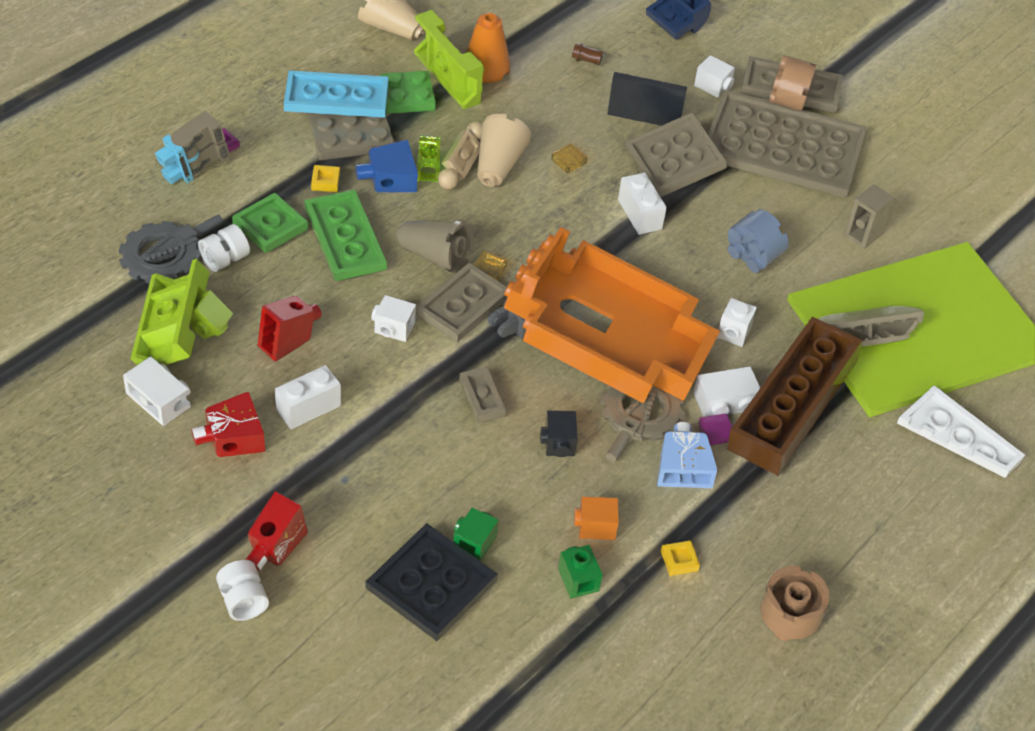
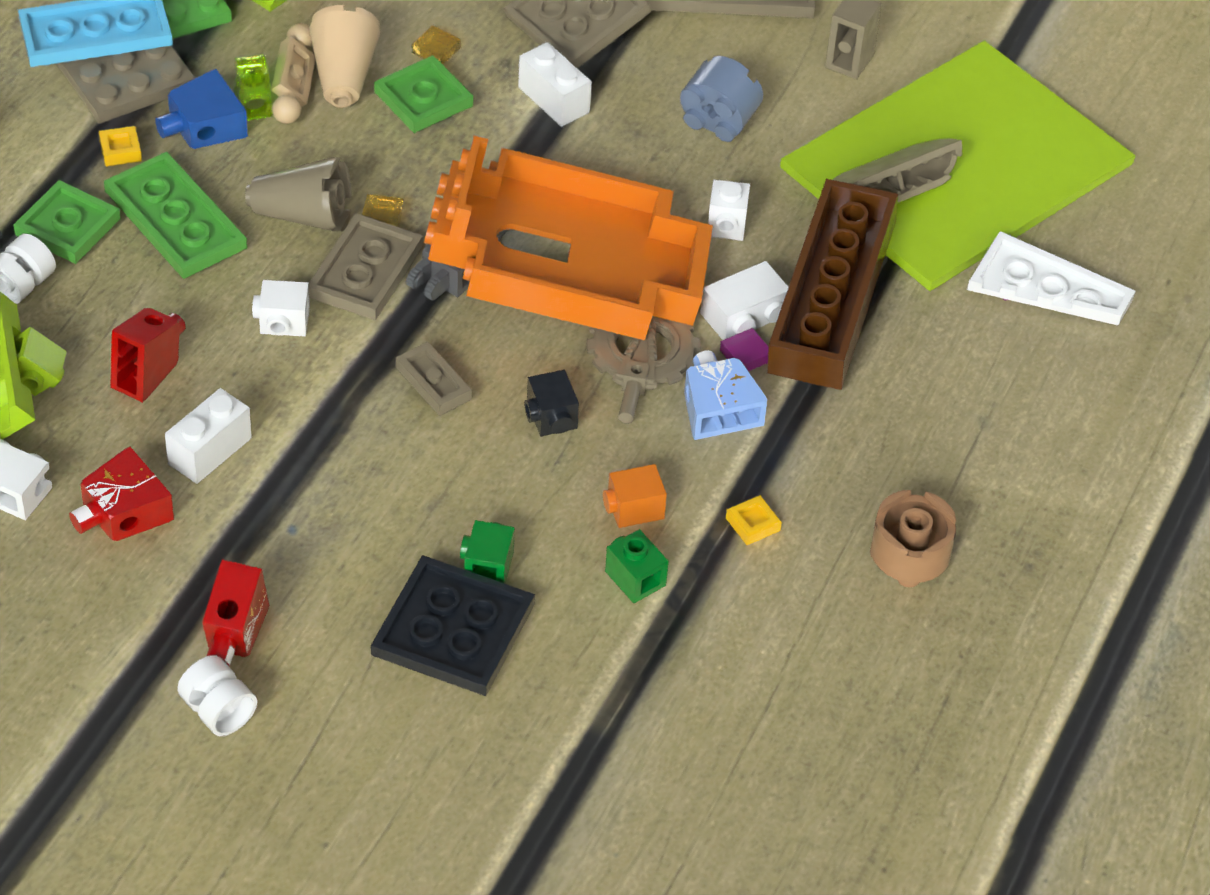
camera: 15 degrees left, 0 degrees up
(547, 189) = (423, 94): none -> bright green plate

